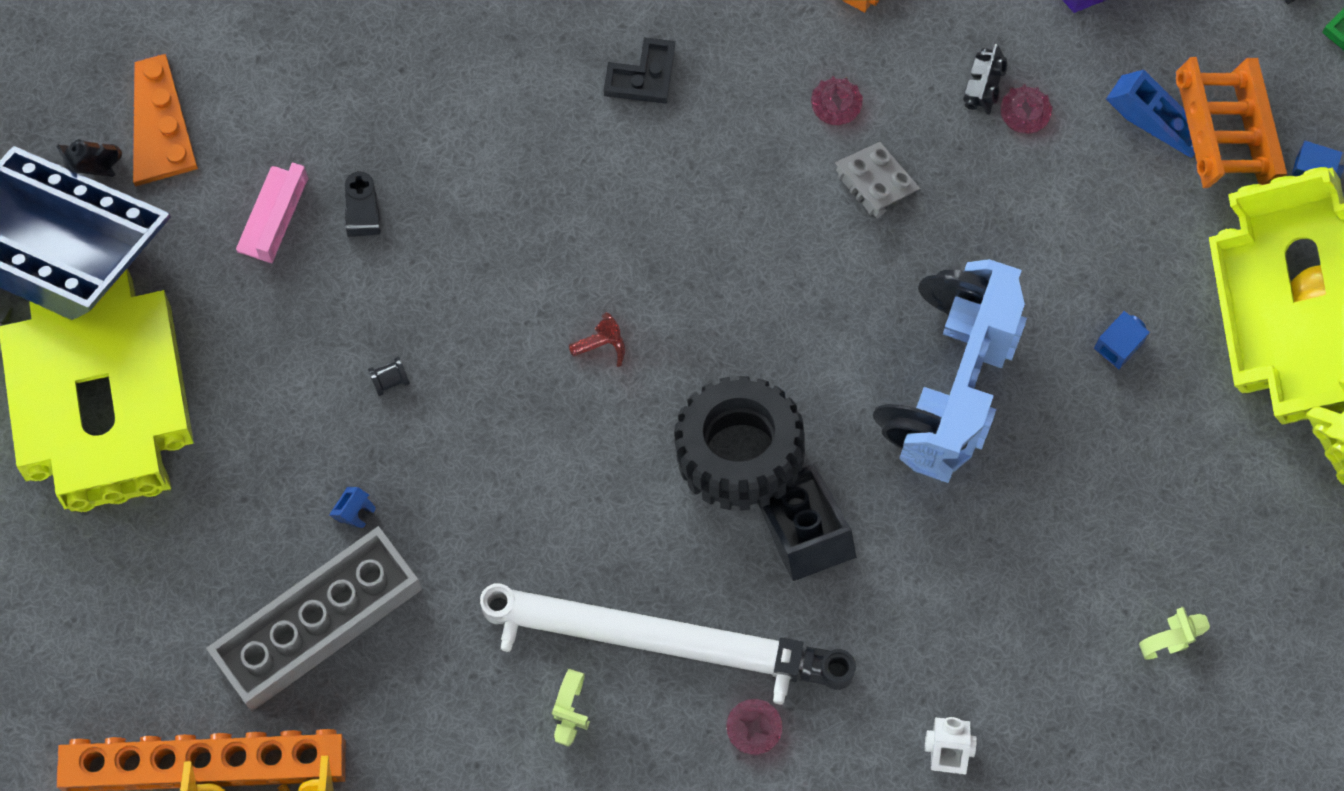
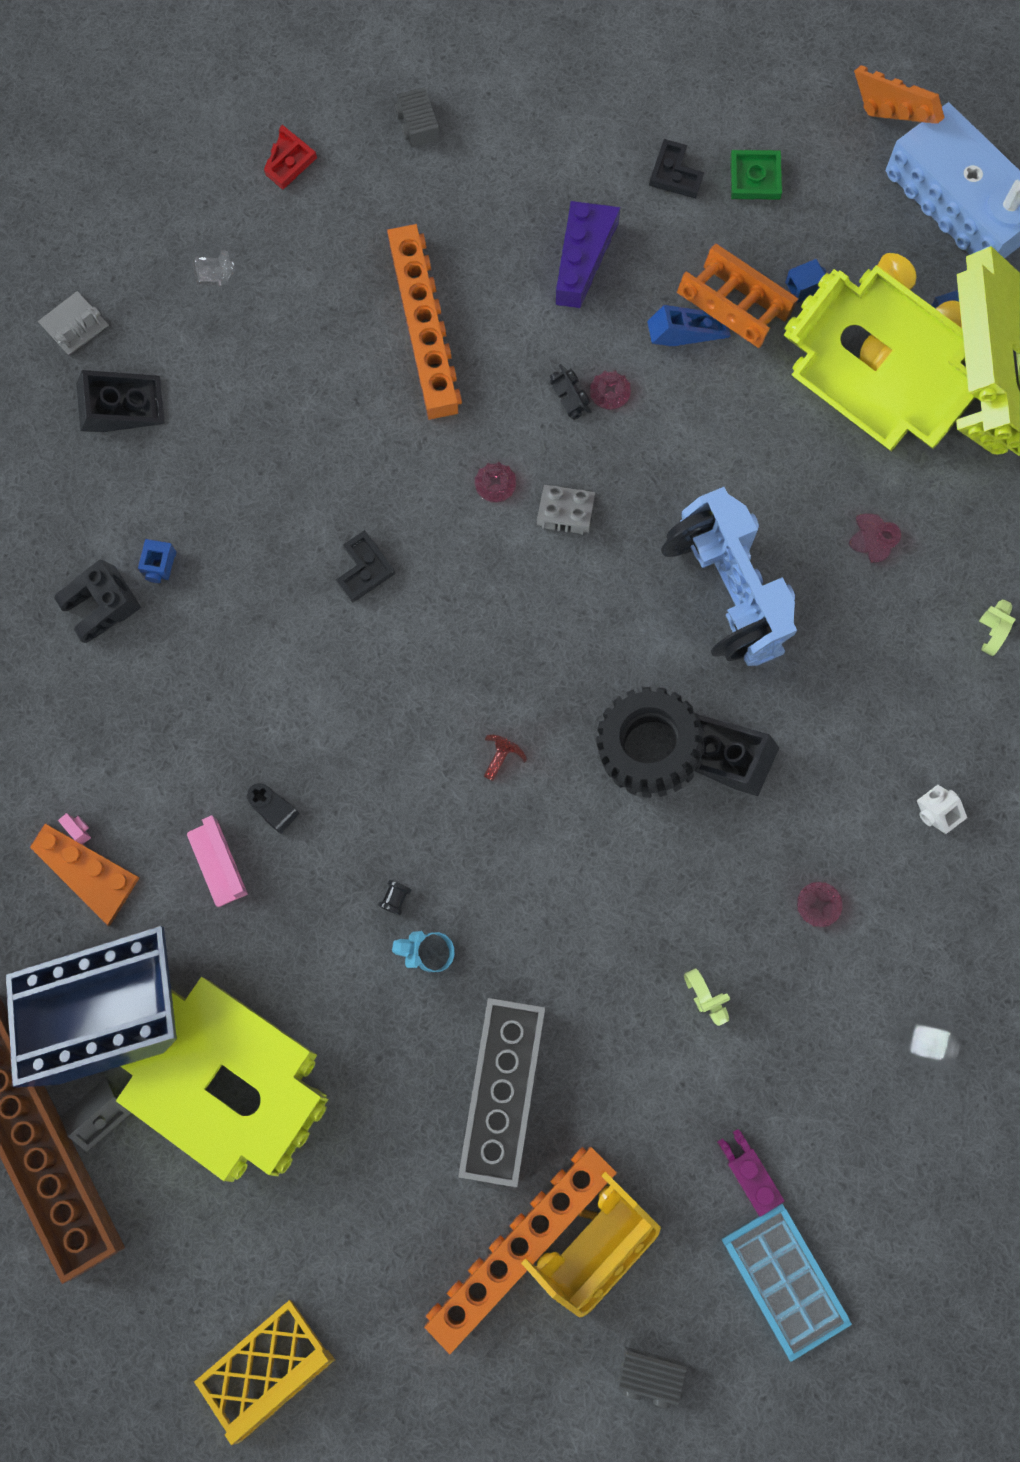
camera: 40 degrees left, 5 degrees up
(90, 157) = (65, 936): black hinge -> none
(185, 79) = (75, 827): none -> bright pink plate
(348, 506) = (451, 1000): blue tile -> none
(354, 423) = (410, 947): none -> medium azure piece
(668, 637) = (718, 899): white piece -> none
(1122, 339) = (800, 479): blue brick -> none
(1138, 453) = (871, 537): none -> clear pink plate

